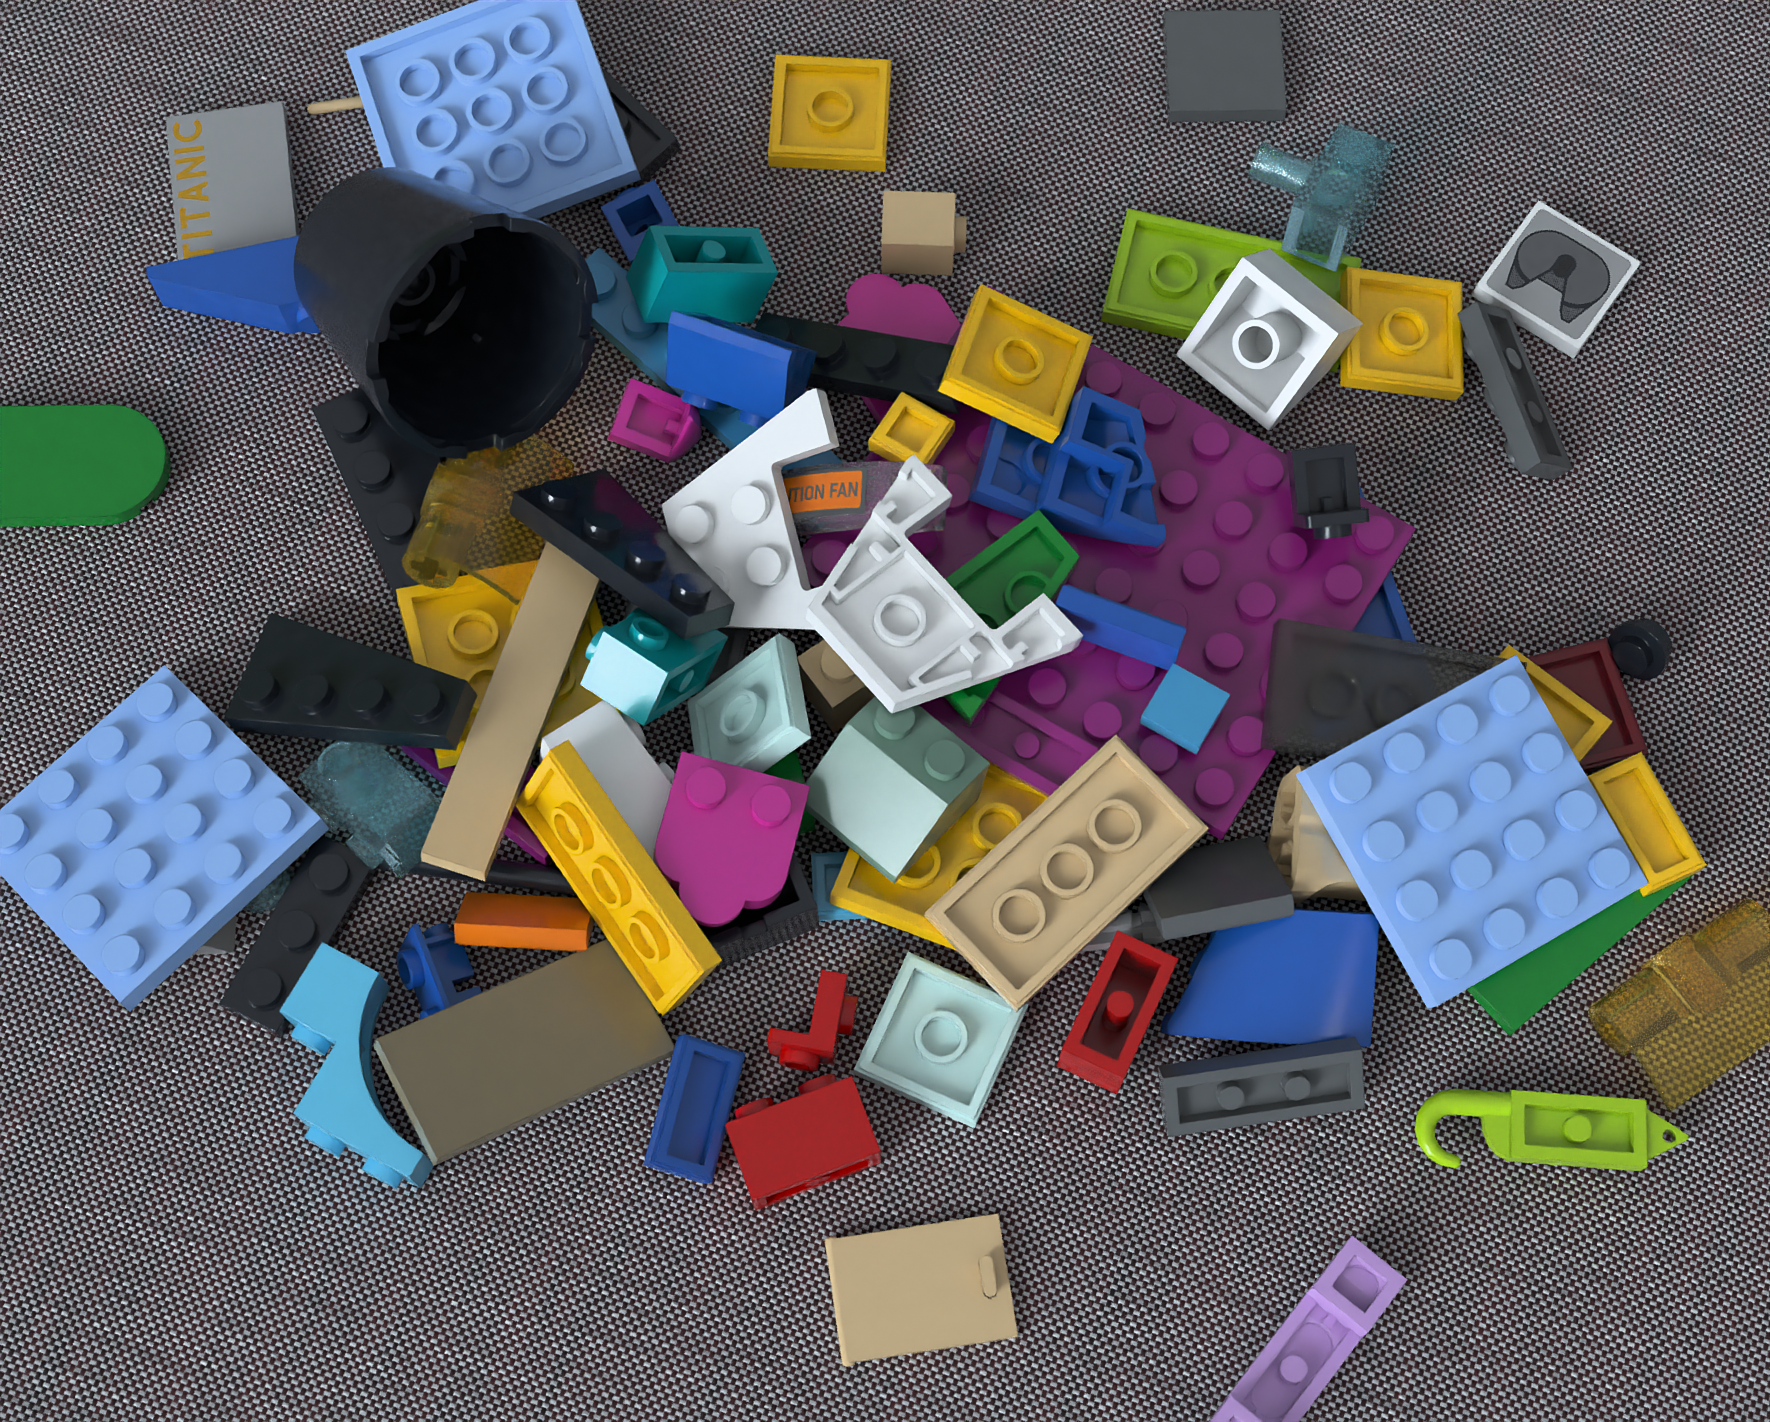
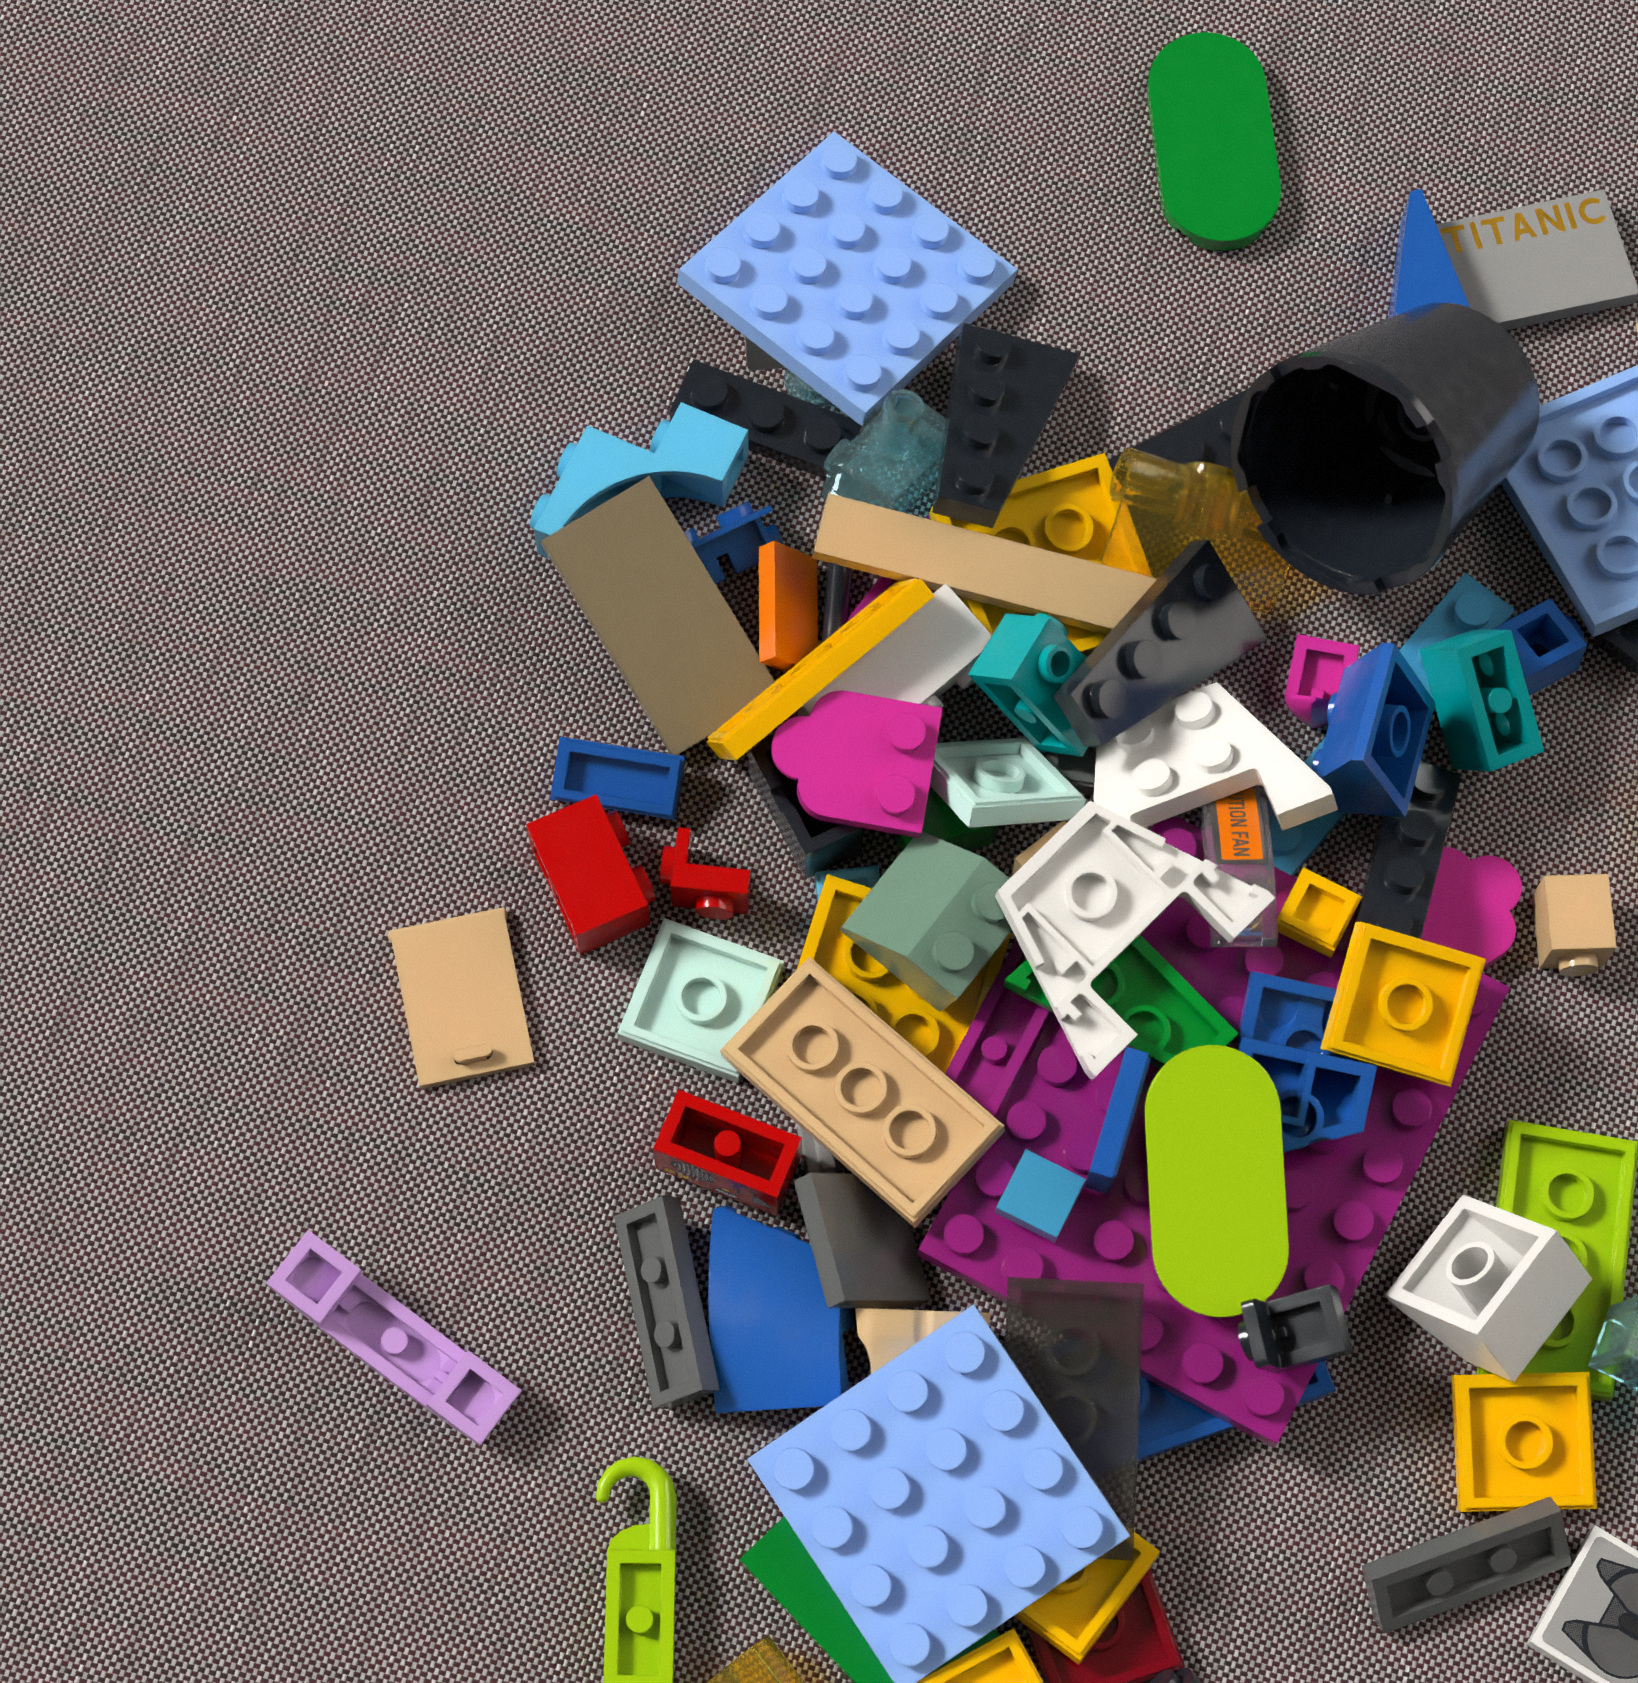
camera: 85 degrees right, 0 degrees up
(1183, 541) = (1216, 1180): none -> lime tile

